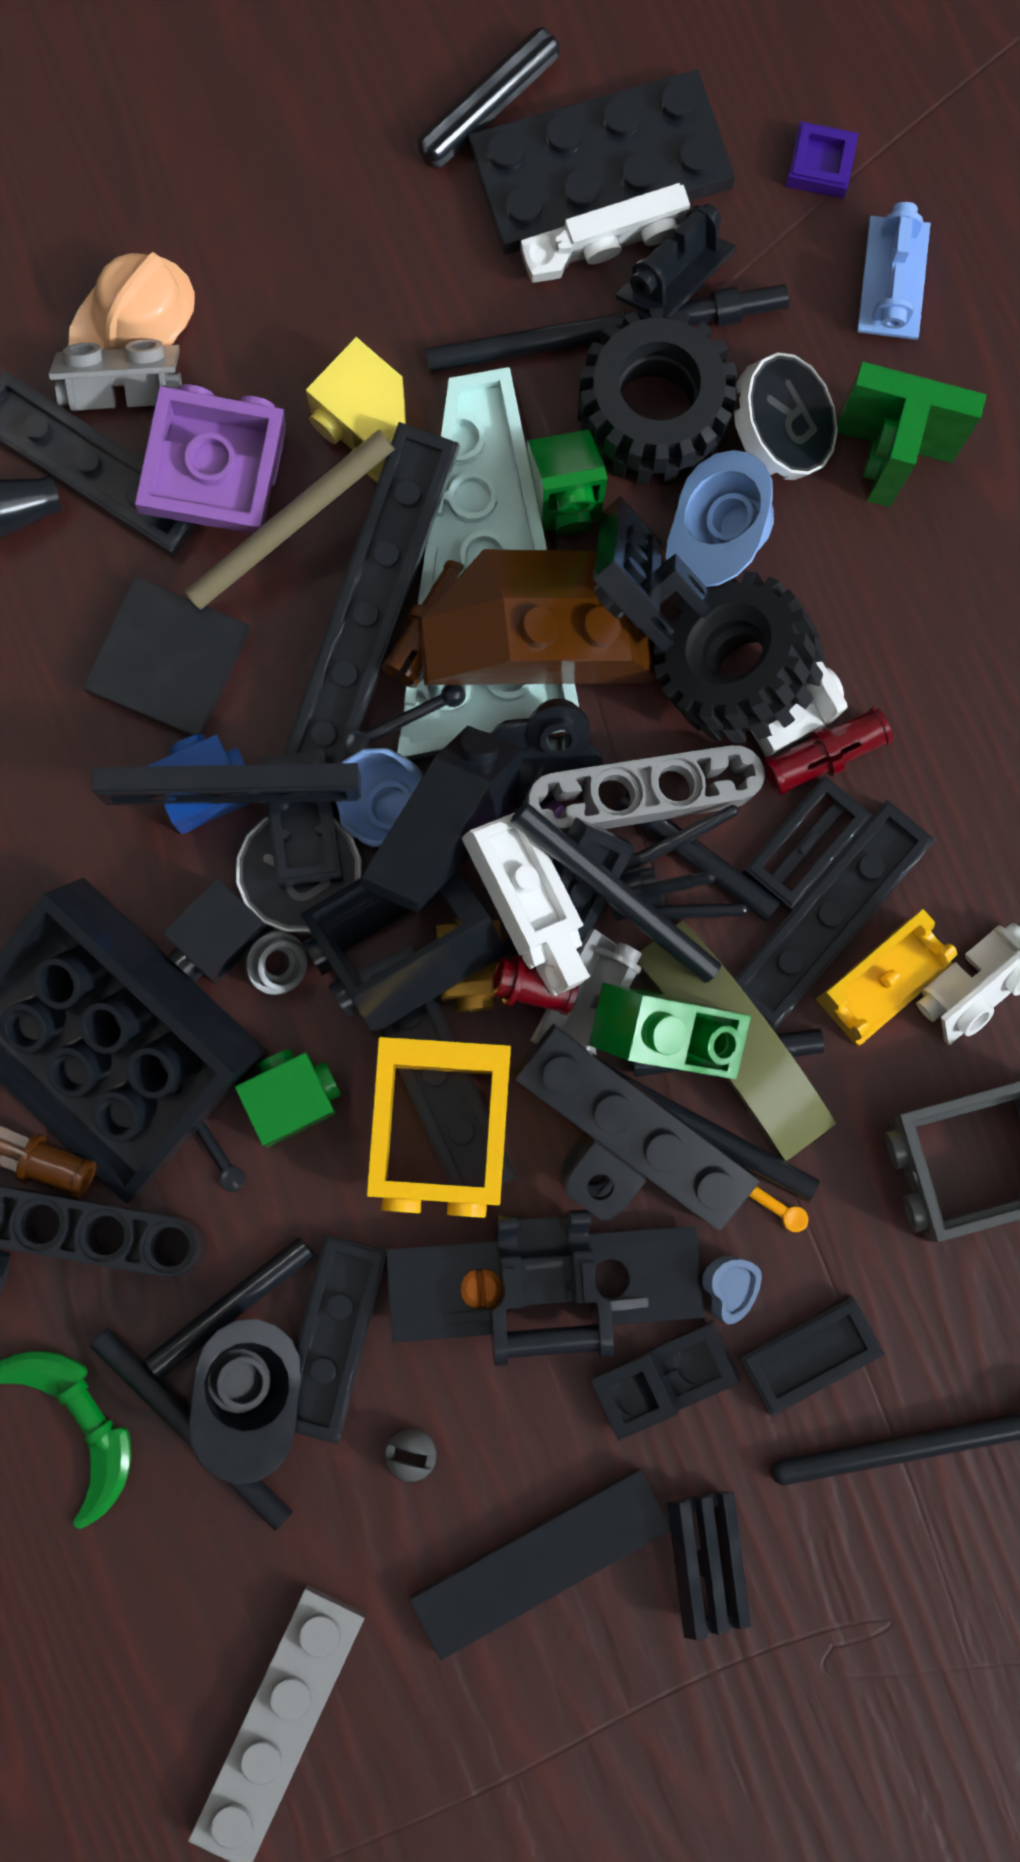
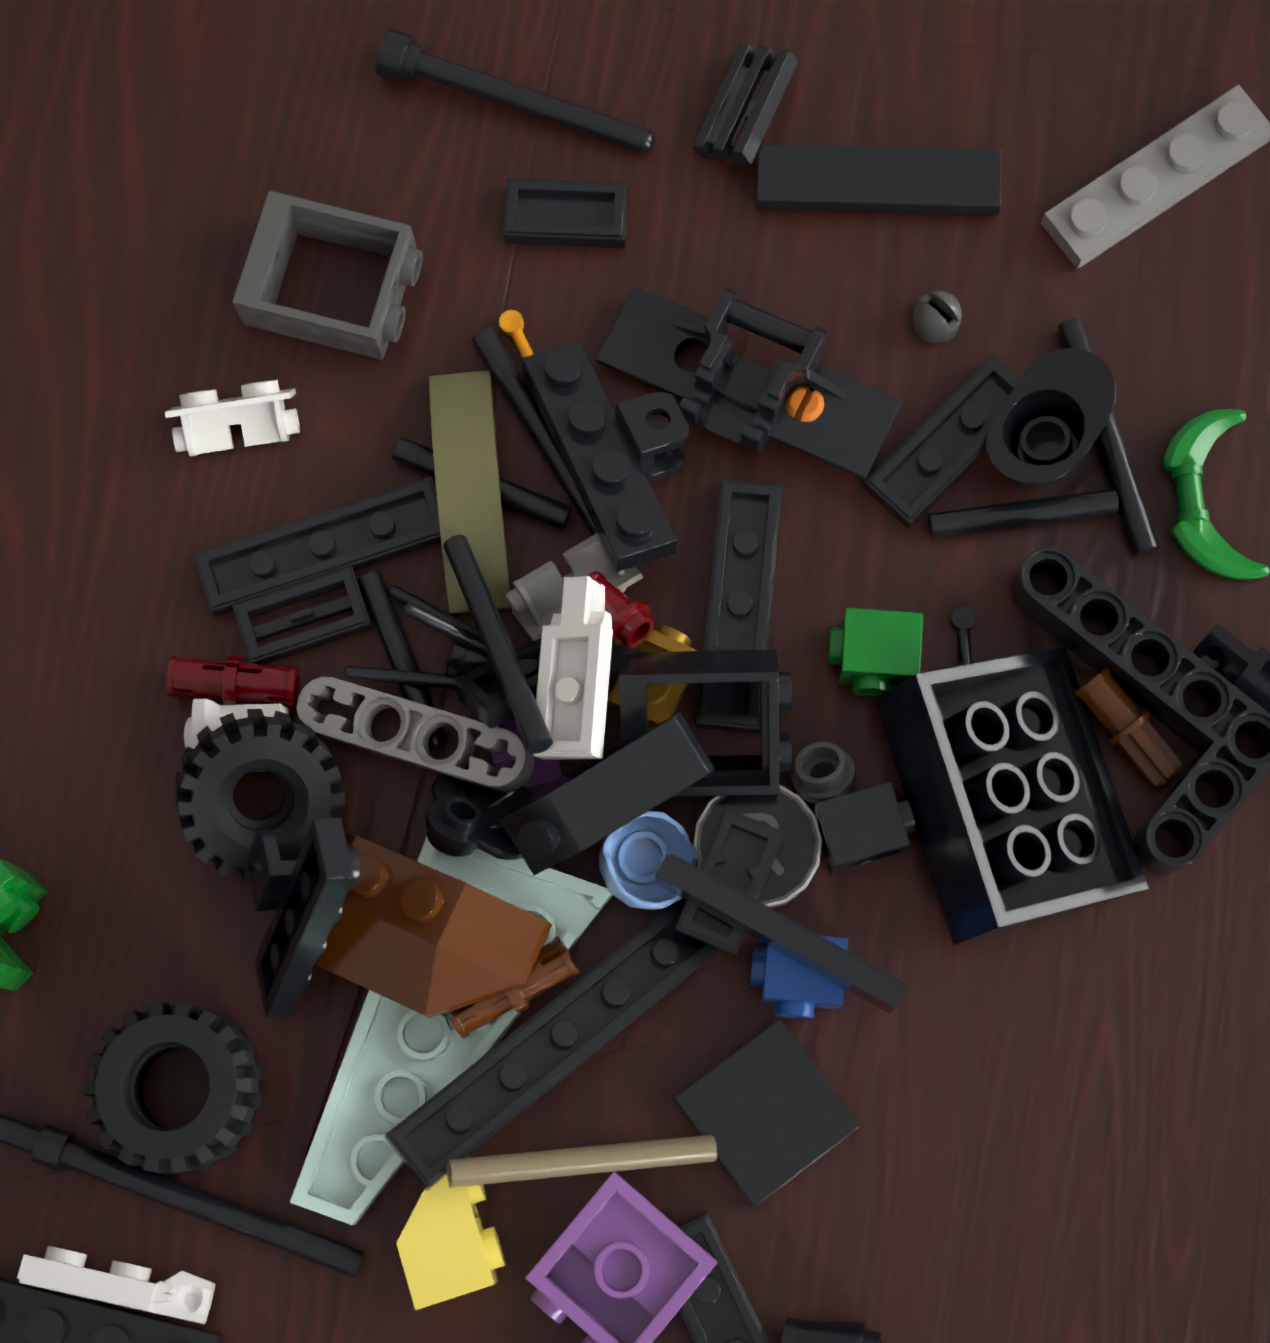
camera: 140 degrees left, 5 degrees down
(448, 1058) = (727, 600): yellow window -> none
(450, 695) = (638, 922): black hinge -> none
(567, 481) = (303, 1054): green slope -> none
(665, 1380) = (694, 259): black slope -> none
(668, 1031) = (525, 510): green slope -> none
(678, 264) = (72, 1208): black hinge -> none
(722, 516) = (192, 933): light blue piece -> none
(733, 1287) = (596, 295): sand blue piece -> none
(786, 416) = (71, 999): tile -> none
(887, 978) = (311, 467): yellow hinge -> none

